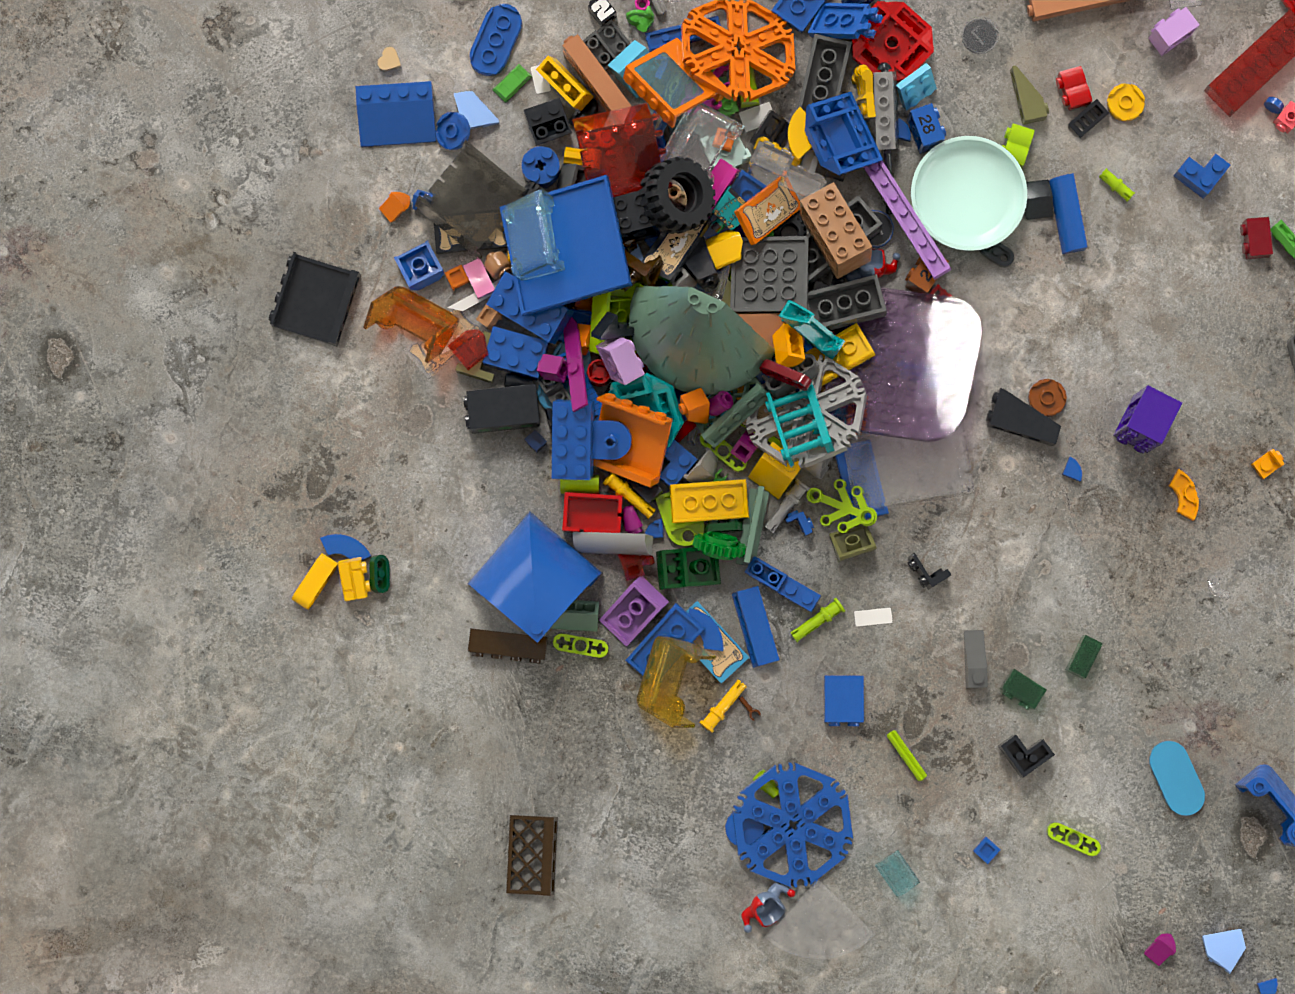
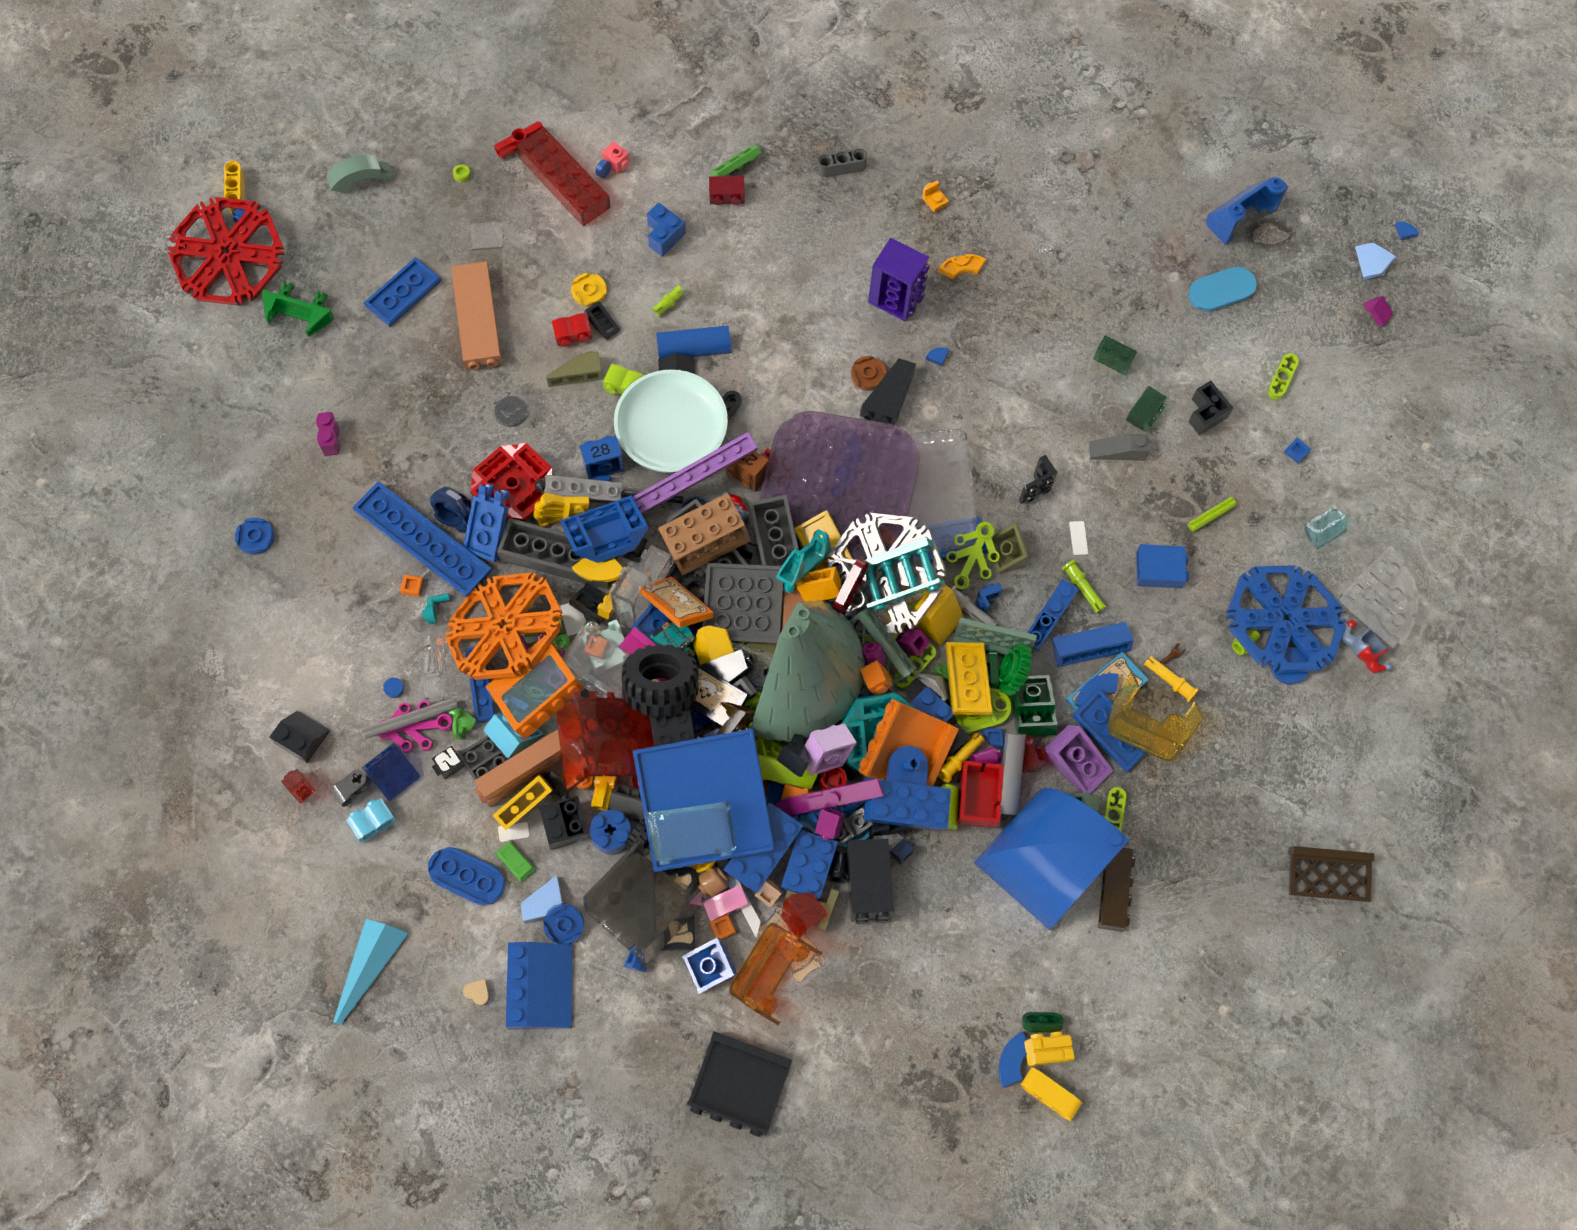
camera: 90 degrees left, 15 degrees down
(395, 205) = (641, 990): orange tile -> none
(916, 86) = (558, 461): medium azure plate -> none
(1173, 31) = (526, 241): lavender brick -> none

